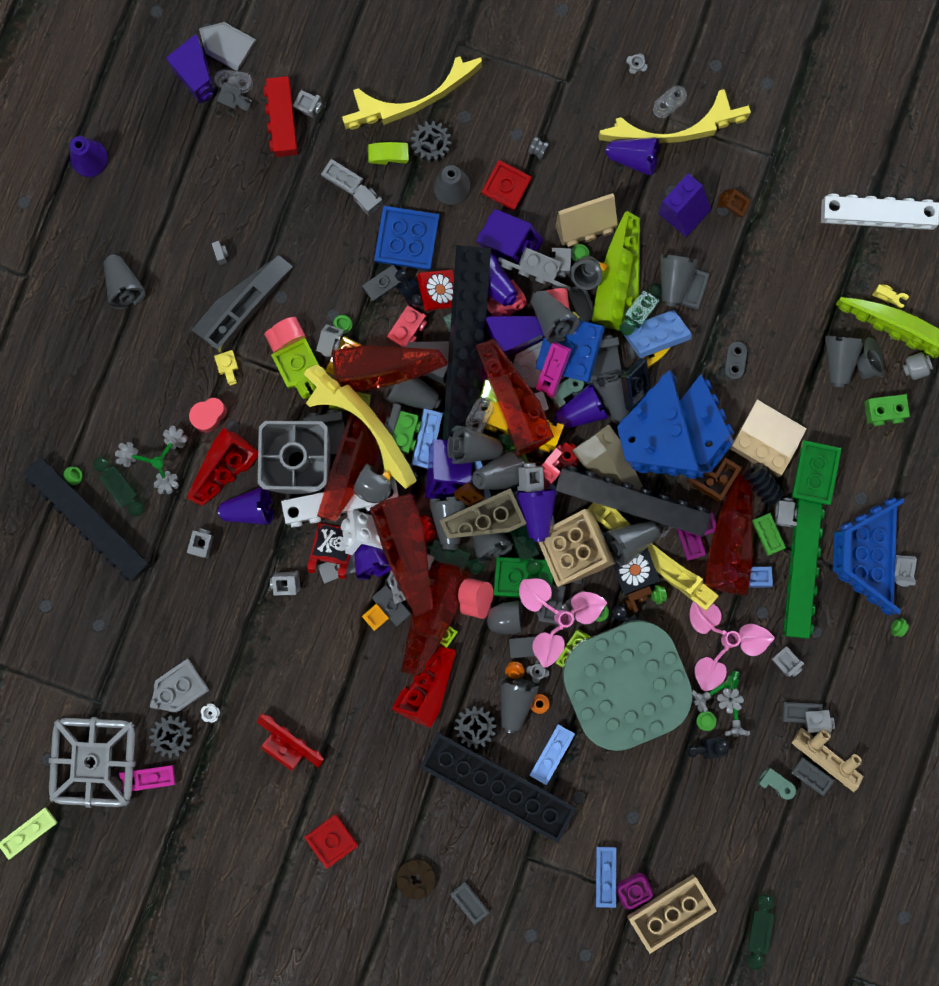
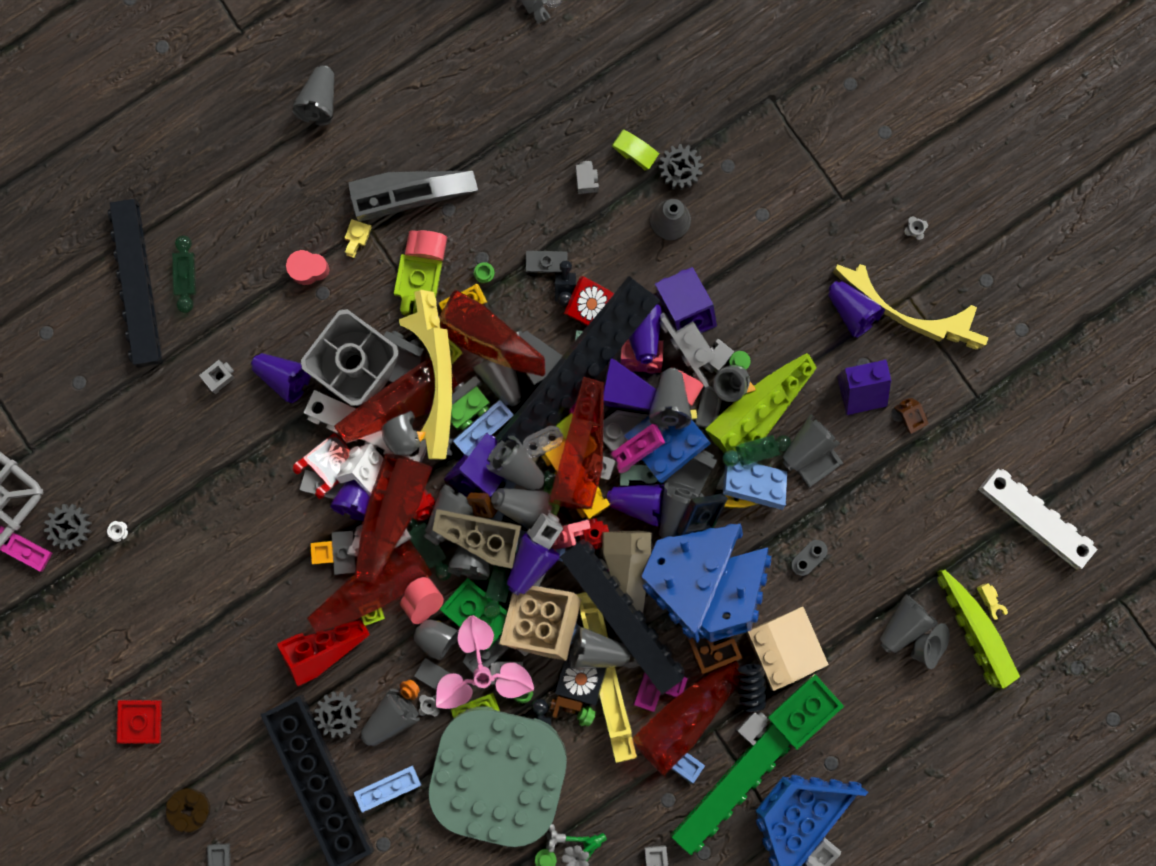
camera: 30 degrees right, 0 degrees up
(72, 475) = (151, 236): bright green plate -> none
(165, 480) = (229, 300): light grey plant -> none
(178, 688) = (106, 489): light grey tile -> none
(220, 252) = (423, 132): light grey plate -> none
(223, 462) = (290, 319): red wedge -> none
(280, 588) = (267, 472): light grey brick -> none
(281, 116) = (564, 51): red brick -> none
(286, 747) = (159, 609): red bracket -> none
(308, 104) = (596, 56): light grey bracket -> none
(329, 340) = (461, 278): light grey brick -> none
(341, 176) = (579, 141): light grey plate -> none
(372, 109) = (650, 102): light yellow slope -> none
(406, 238) = (596, 237): blue plate -> none
(407, 327) = (539, 316): coral bracket -> none
(506, 185) = (719, 253): red plate -> none
(538, 148) = (772, 241): dark grey wheel -> none
(544, 708) = (416, 736): orange plate -> none
(587, 221) = (766, 337): tan slope -> none
(670, 100) = (921, 283): clear plate -> none
(753, 641) = (641, 818): bright pink plant -> none
(768, 534) = (724, 734): bright green plate -> none
(887, 409) = (912, 700): bright green brick -> none
(918, 366) = (970, 682): light grey head -> none

